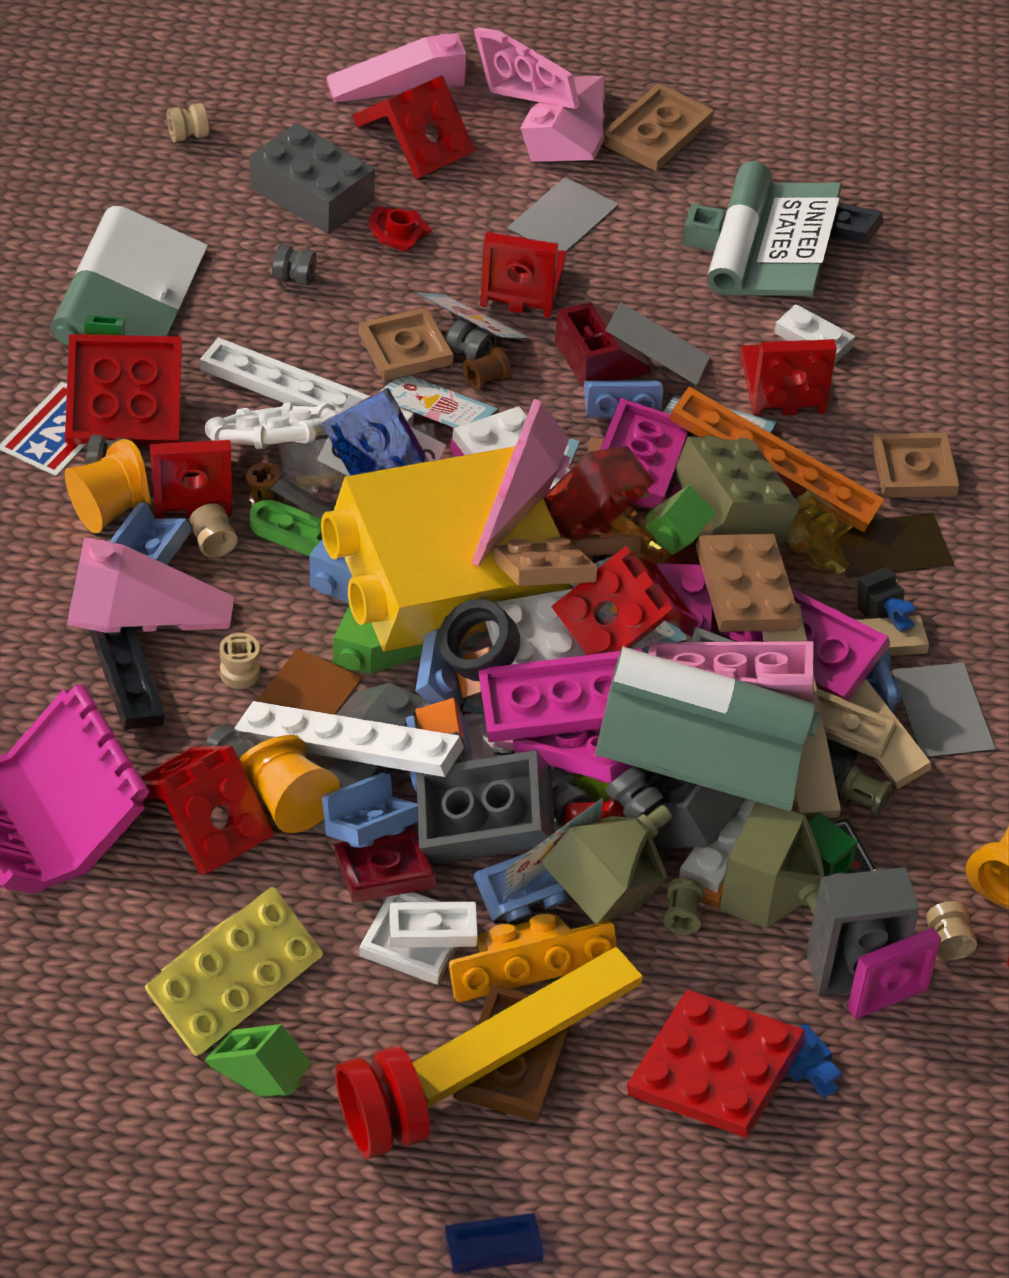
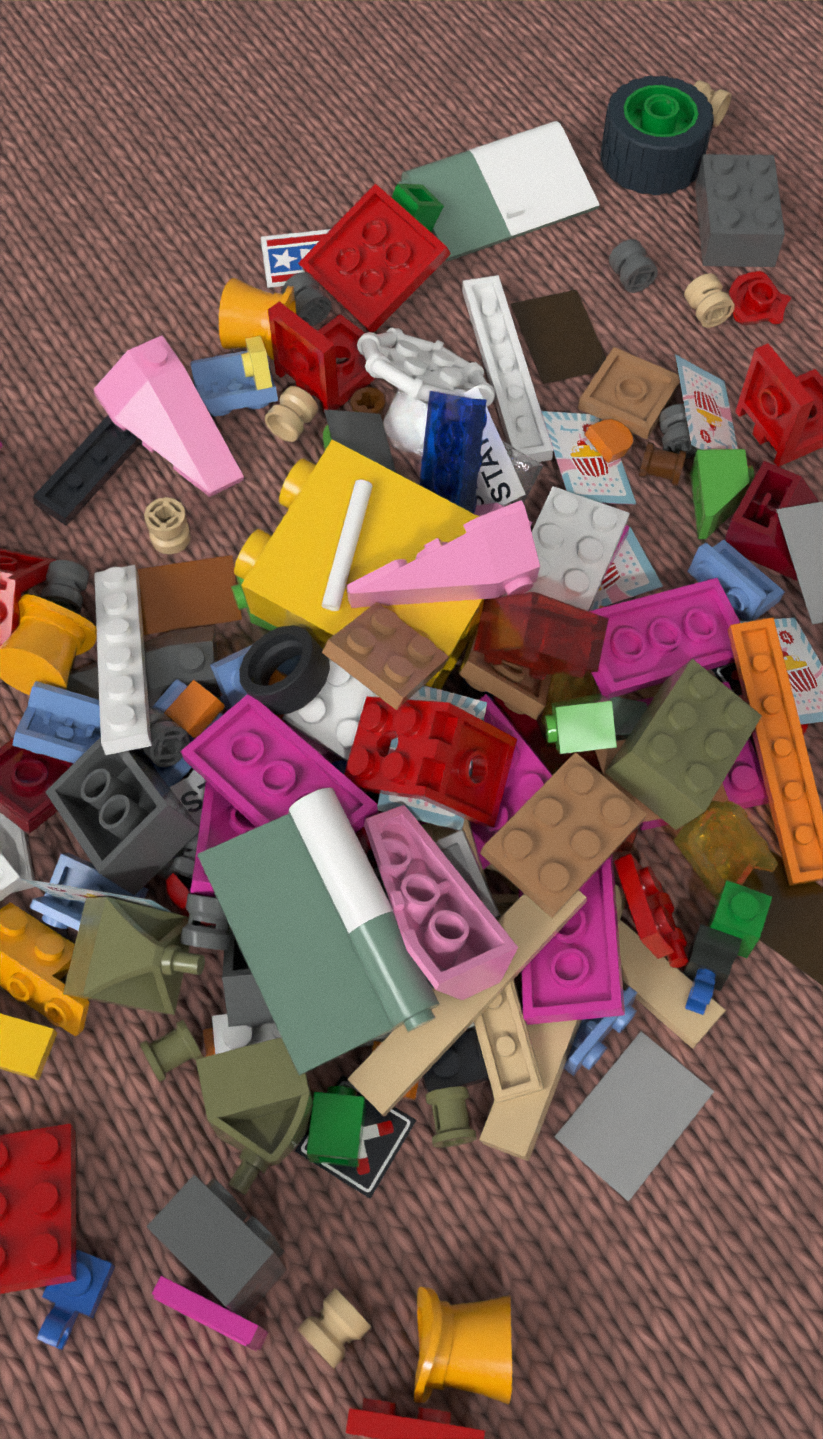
camera: 55 degrees right, 15 degrees up
(157, 510) = (256, 363): none -> light yellow plate
(192, 167) = (656, 134): none -> black wheel
(305, 346) = (559, 336): none -> dark brown sticker
(373, 249) = (709, 300): none -> tan wheel
(434, 381) = (610, 439): none -> orange tile
(435, 529) = (347, 545): none -> white piece
(538, 355) = (718, 486): none -> bright green slope
(838, 594) = (651, 911): none -> red plate
(866, 555) = (740, 914): none -> green brick

